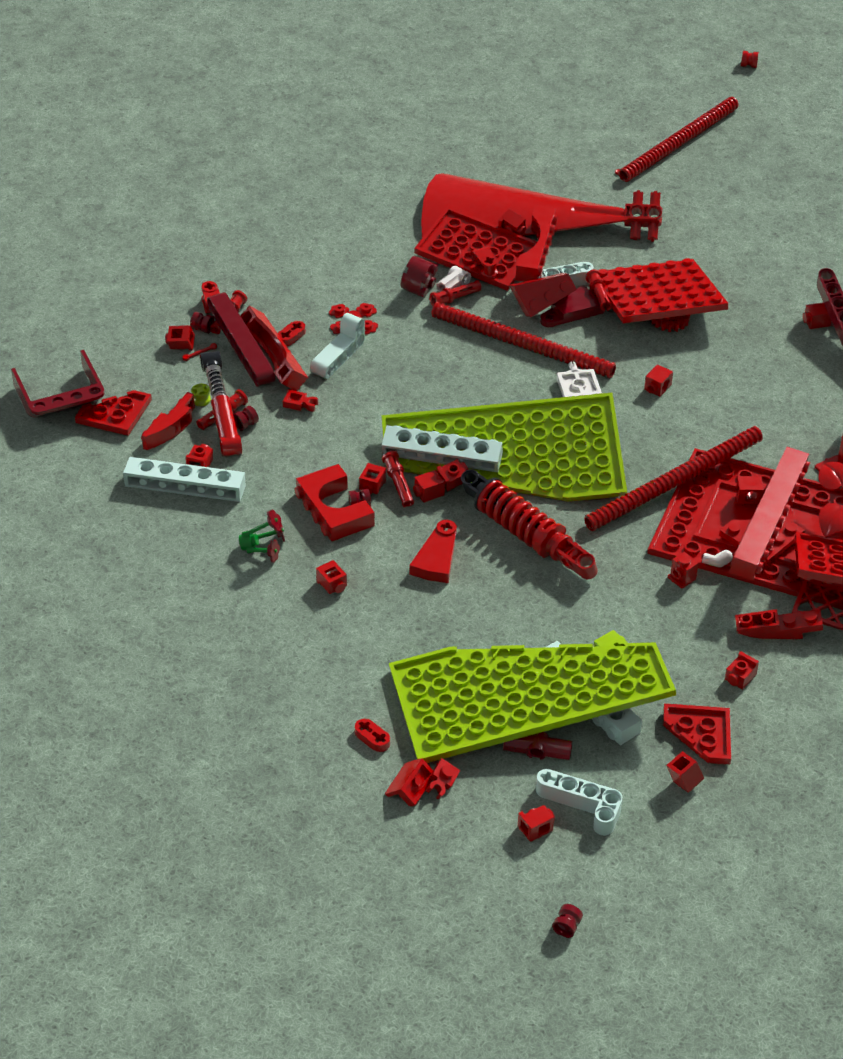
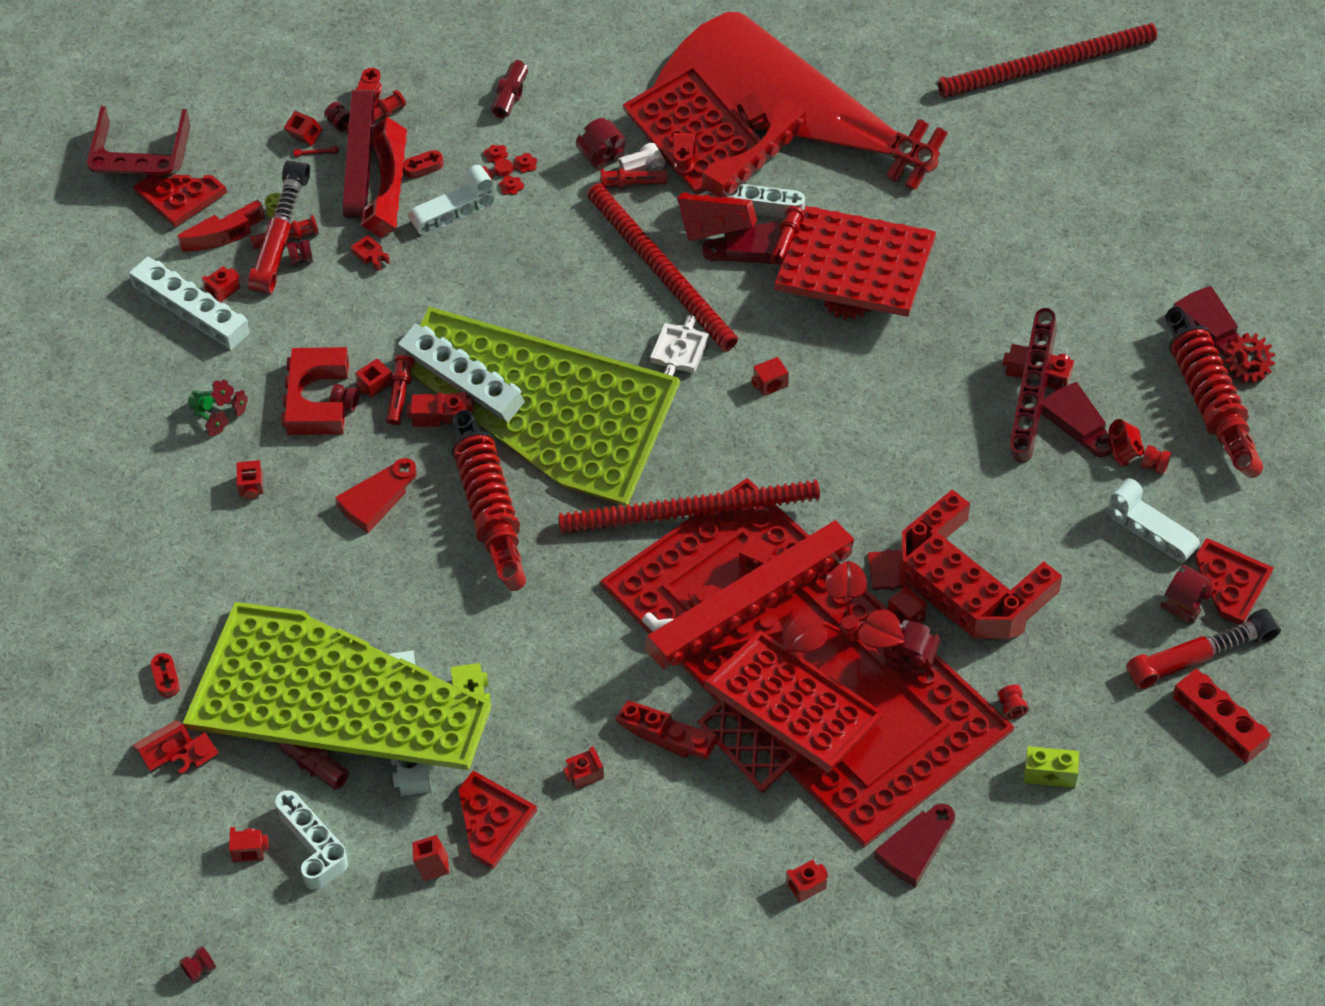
camera: 30 degrees right, 10 degrees up
(318, 266) = (509, 89): none -> dark red piece
(683, 570) = (614, 623): red brick -> none

